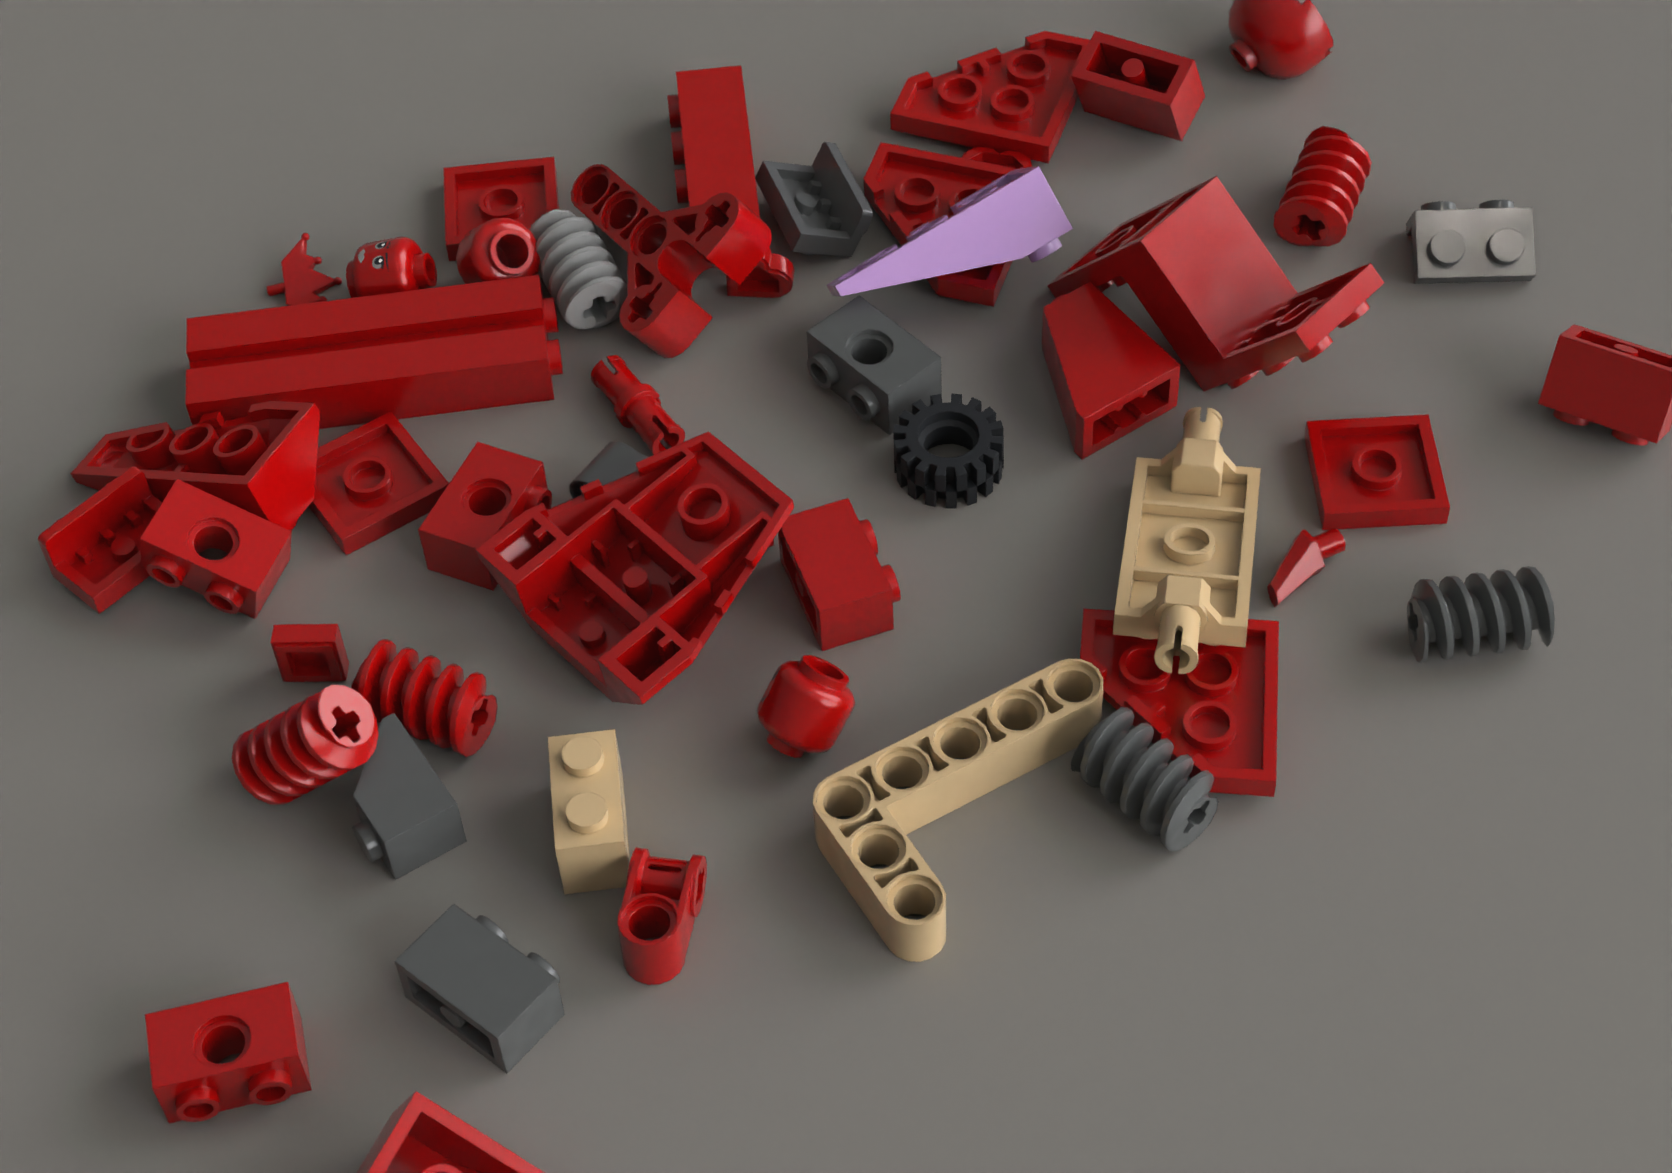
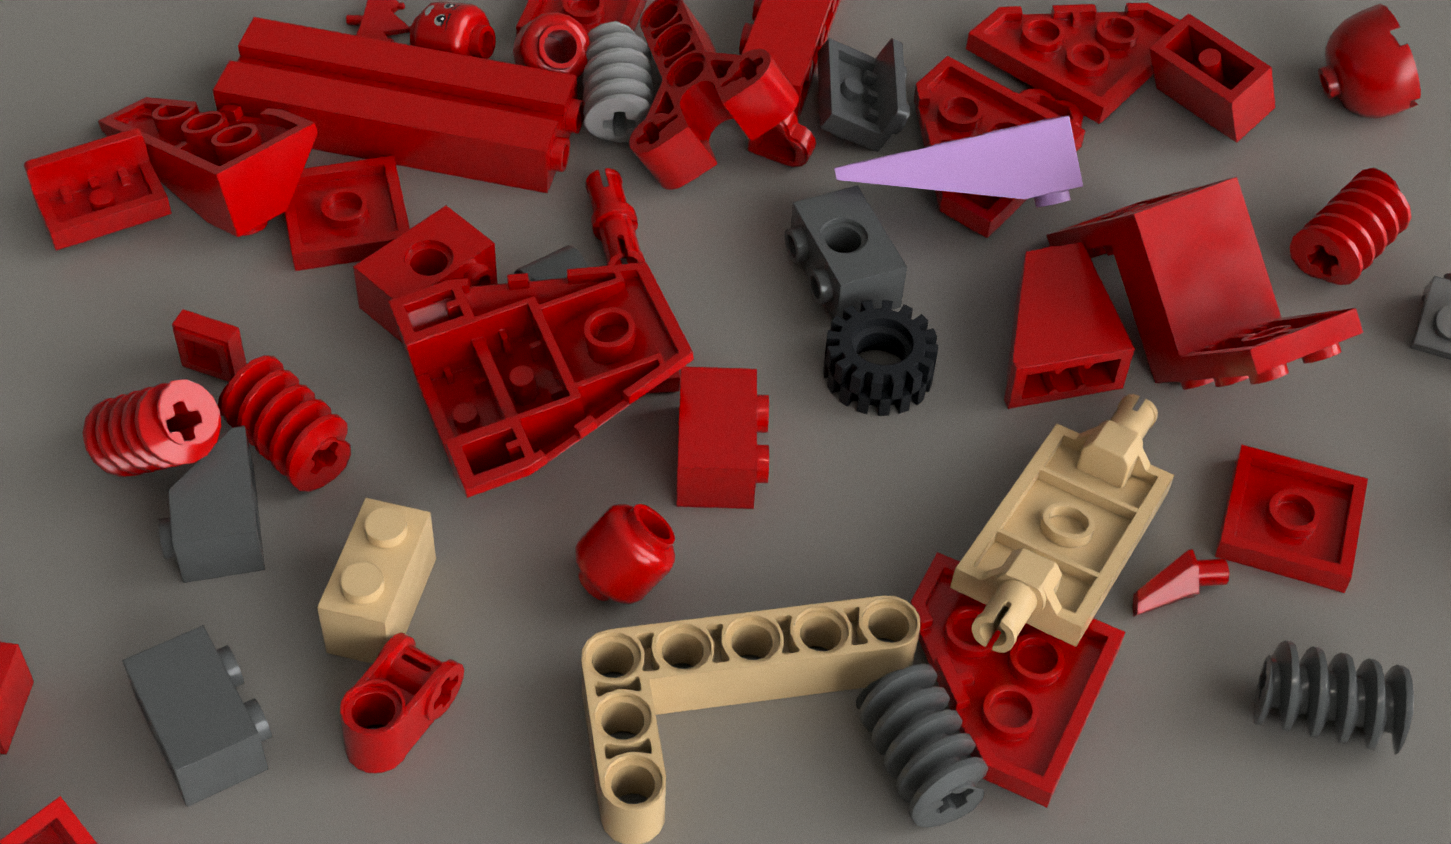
camera: 15 degrees right, 0 degrees up
(199, 521) = (160, 195): red brick -> none

